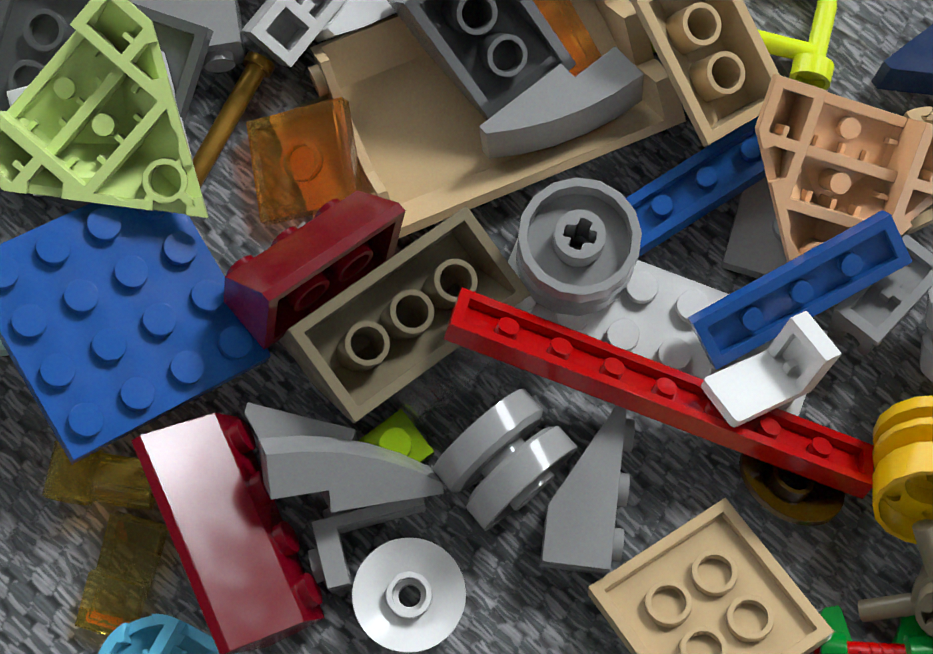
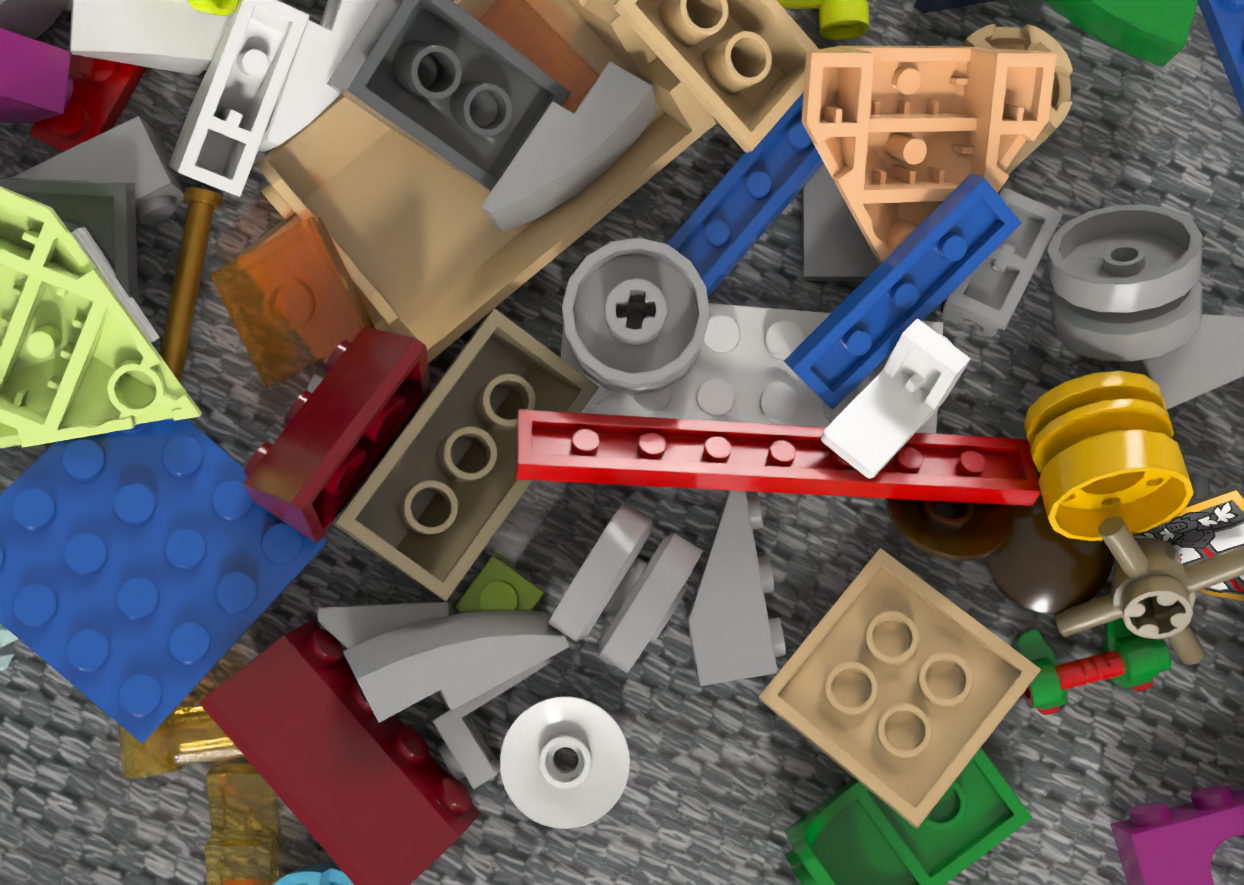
camera: 10 degrees left, 10 degrees up
(861, 555) = (1045, 567): none -> dark brown dish

